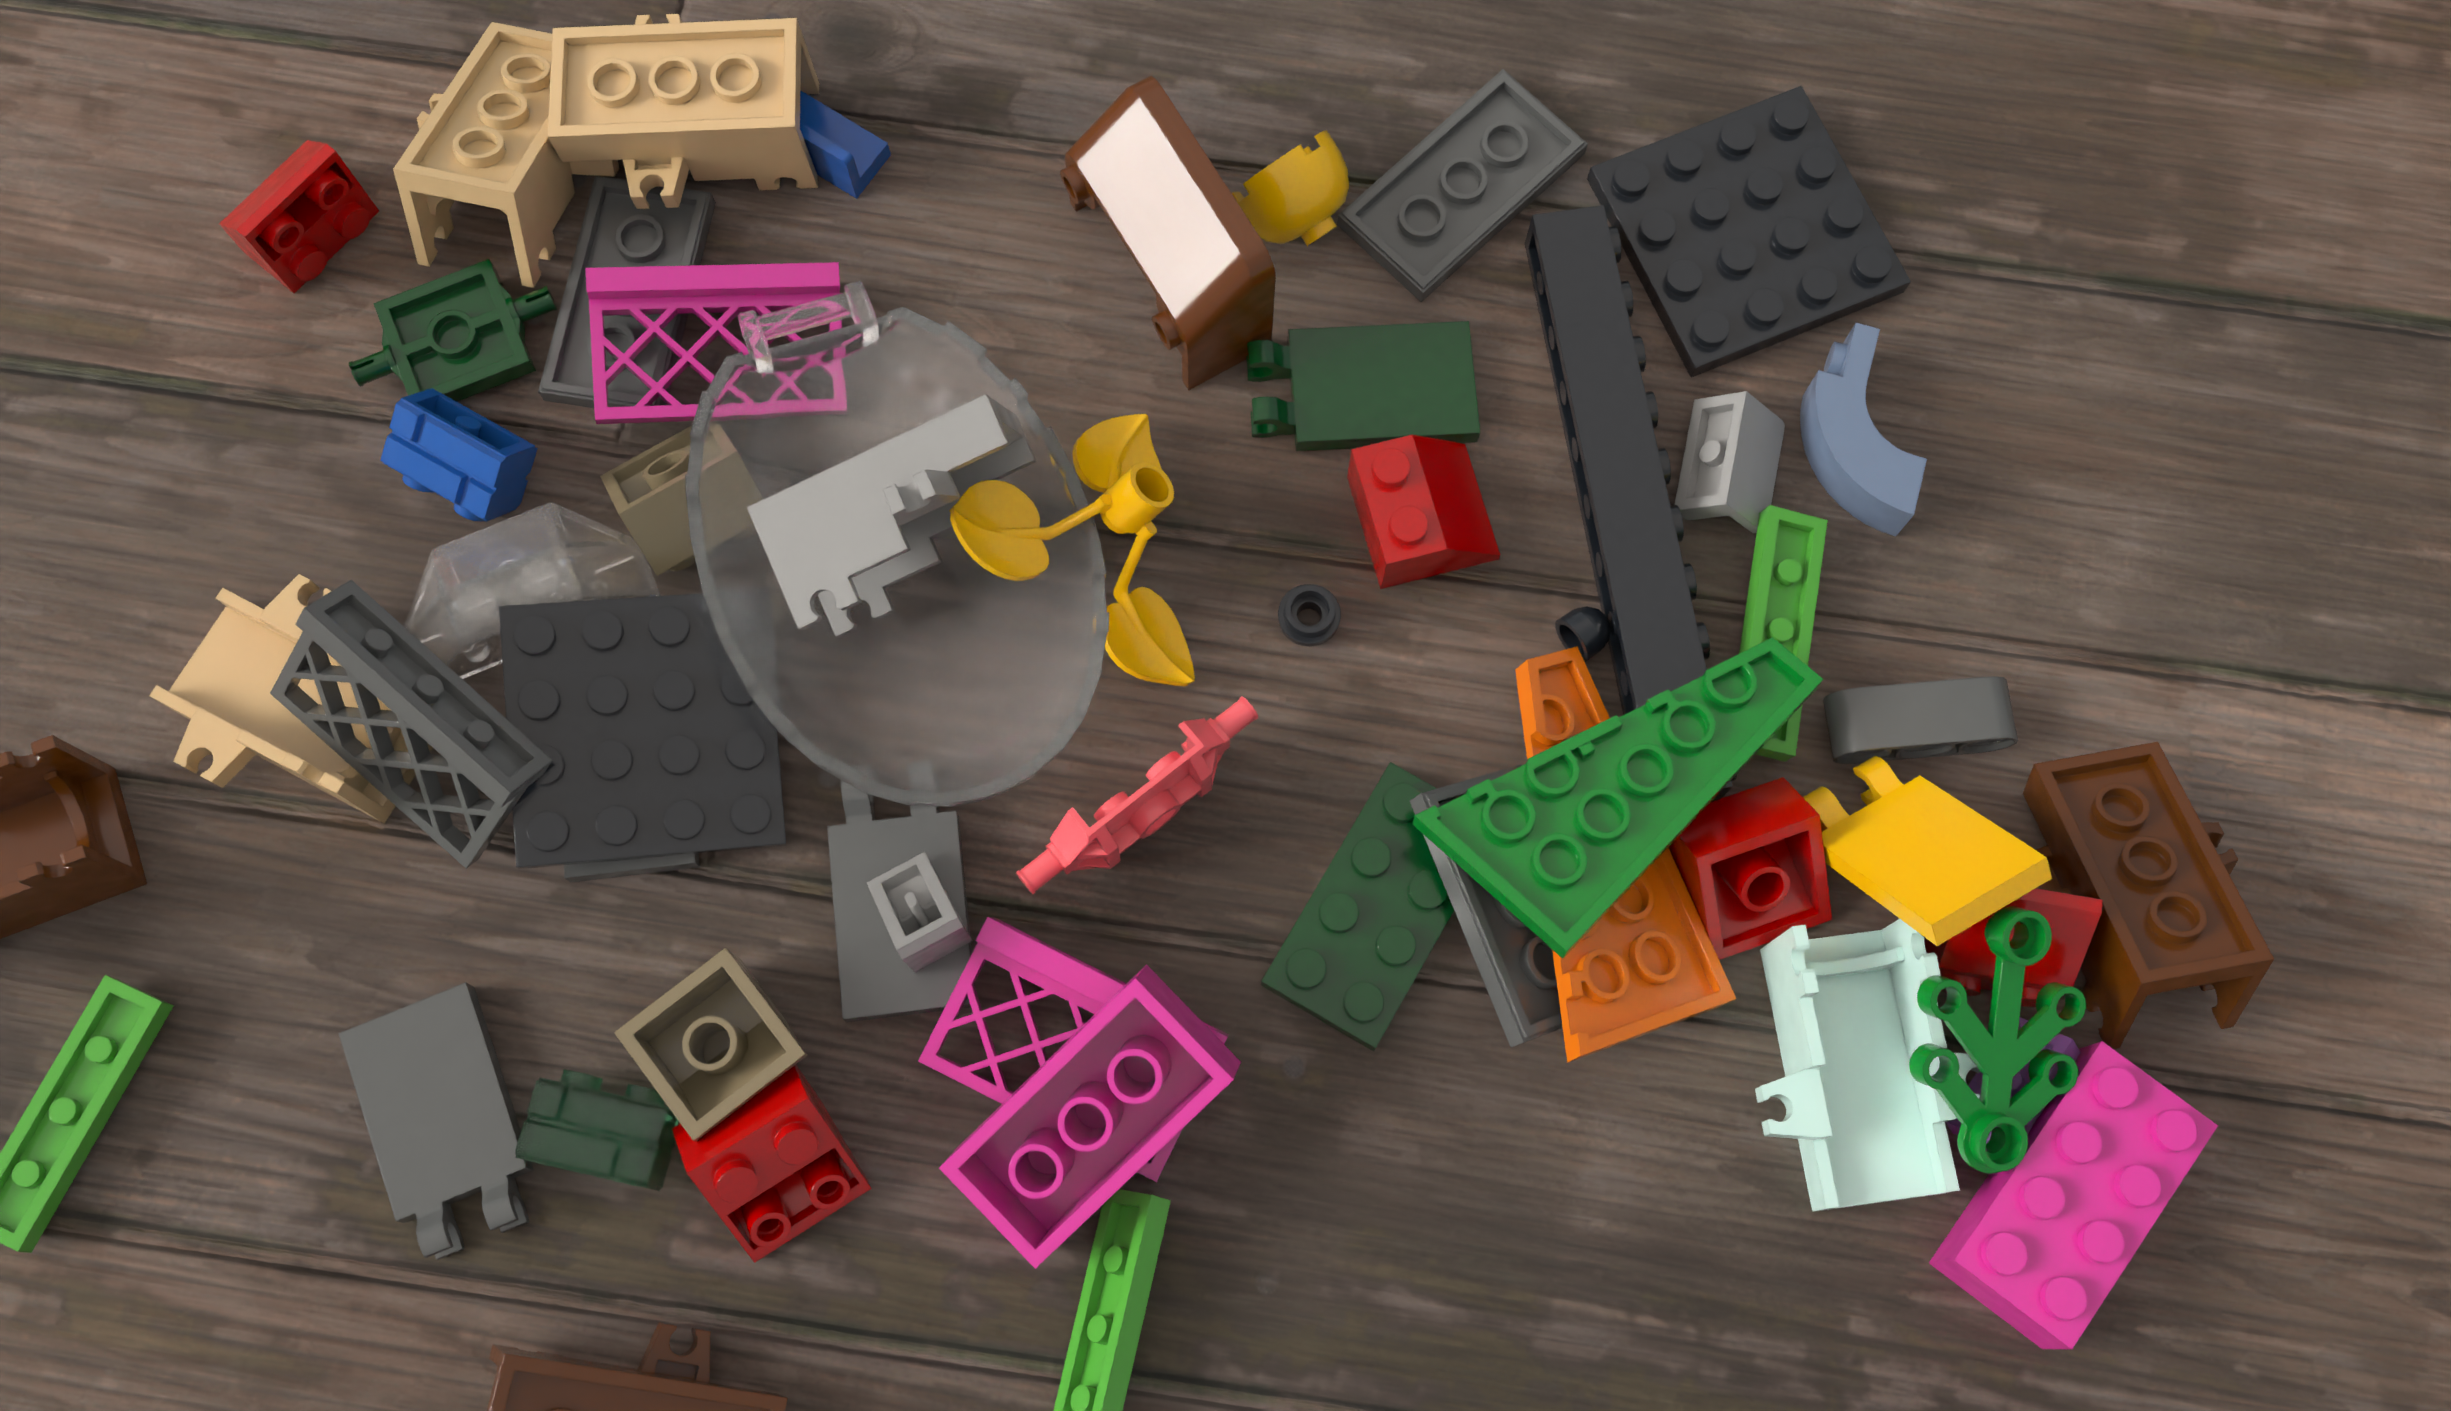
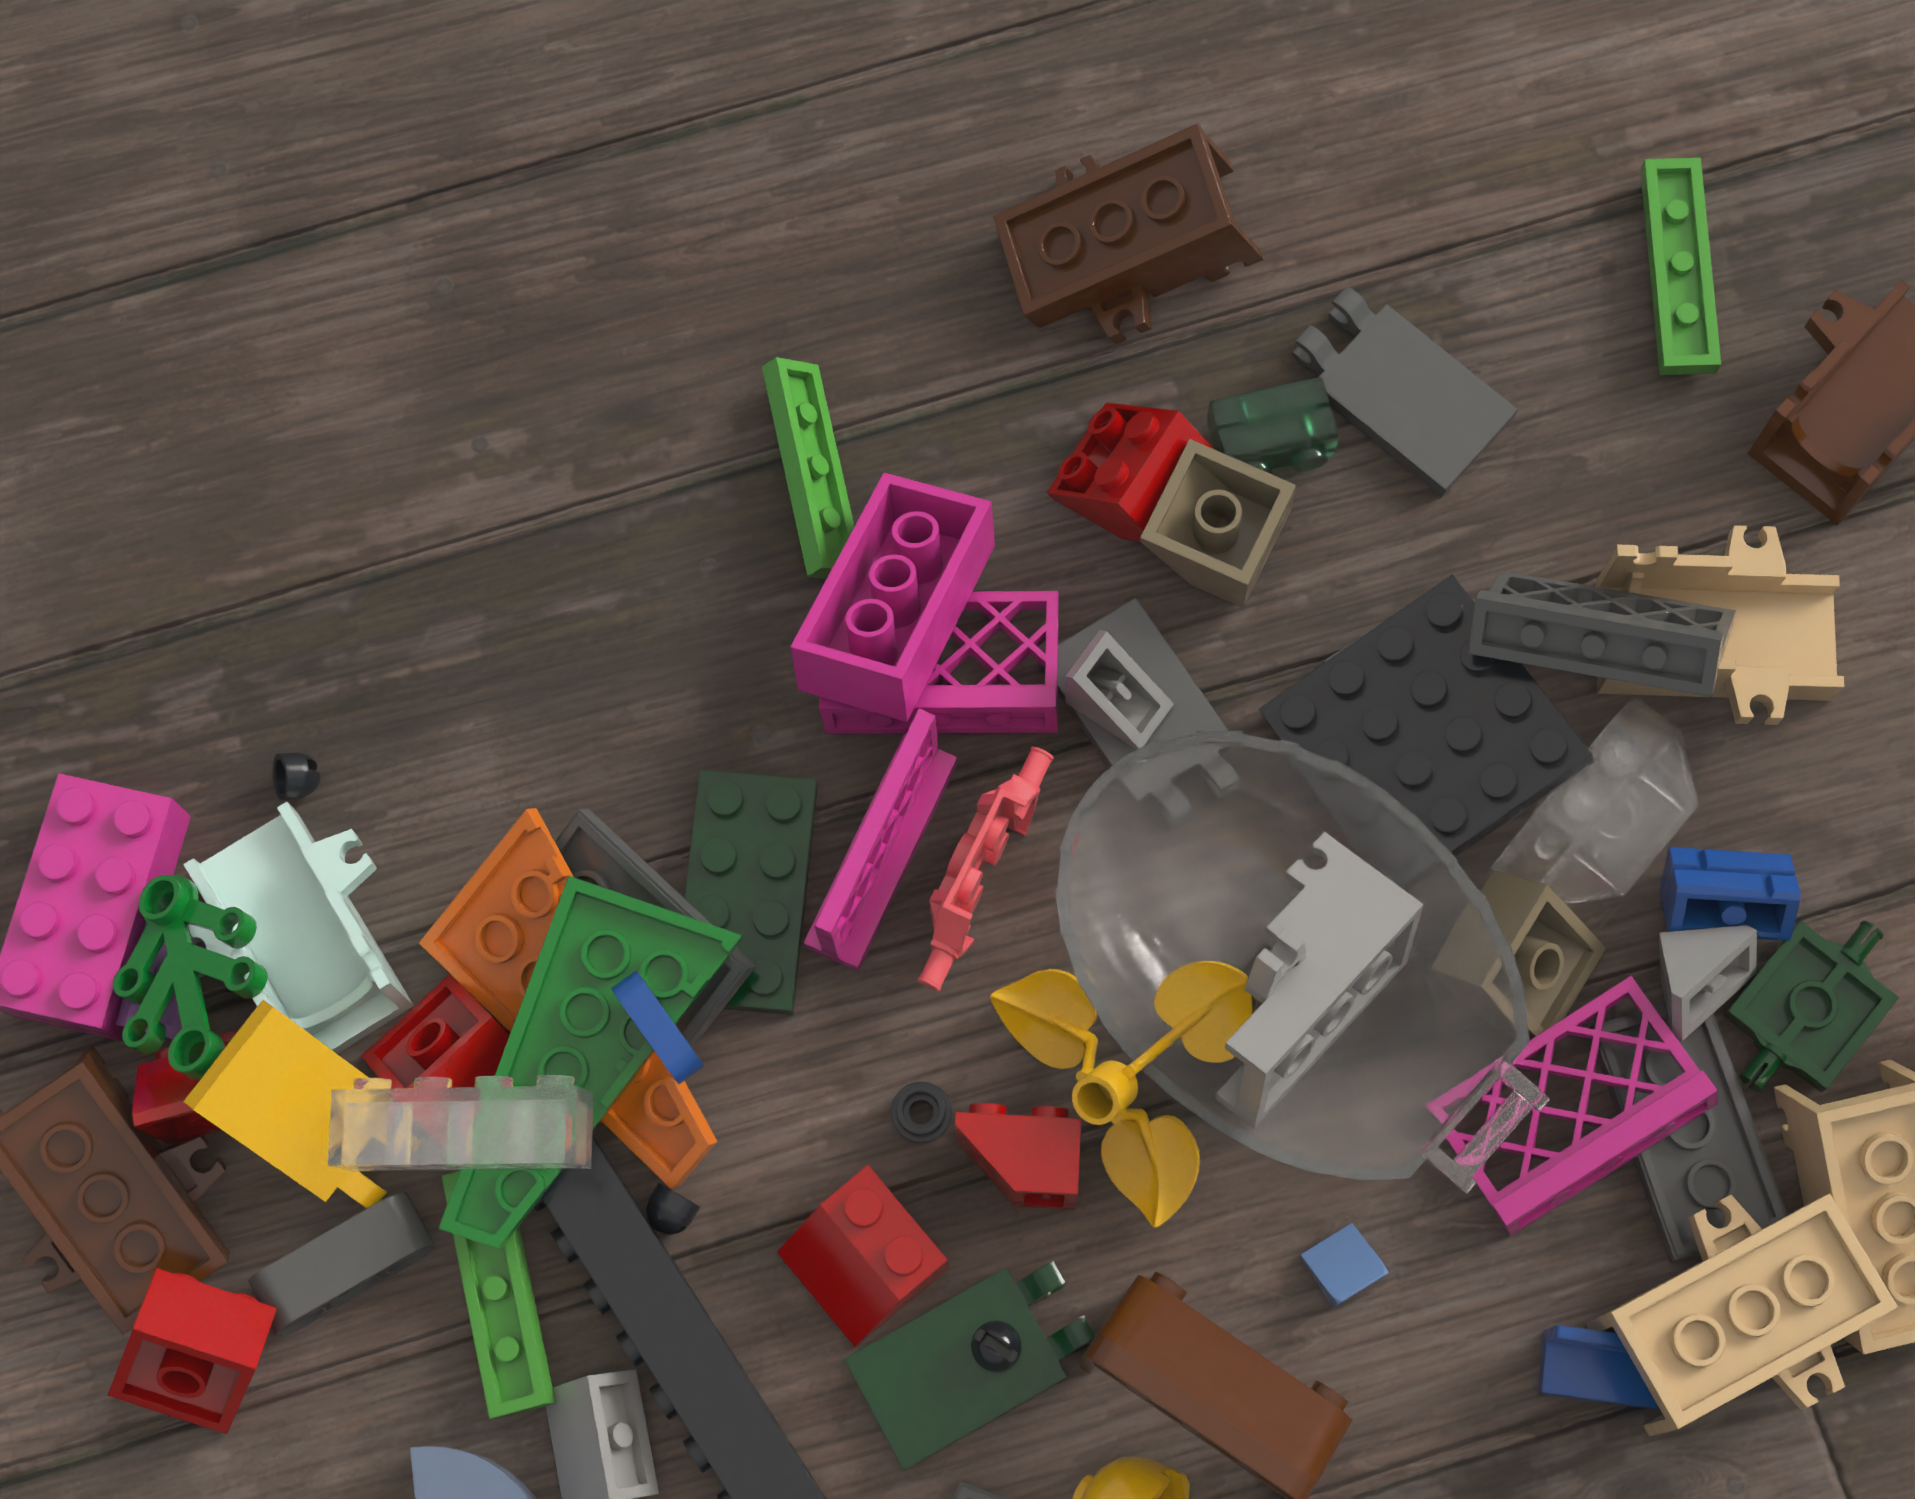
camera: 160 degrees right, 0 degrees up
(537, 401) = (1703, 971): none -> light grey slope
(996, 311) = (1343, 1265): none -> medium blue slope
(1232, 511) = (1025, 1156): none -> red slope
(1234, 875) = (883, 846): none -> dark pink fence
(1330, 380) = (988, 1357): none -> black hinge
(1539, 753) = (657, 1027): none -> blue beam
(1773, 744) = (461, 1126): none -> clear brick
(1807, 1247) = (294, 775): none -> black hinge
(2090, 694) = (192, 1351): none -> red slope

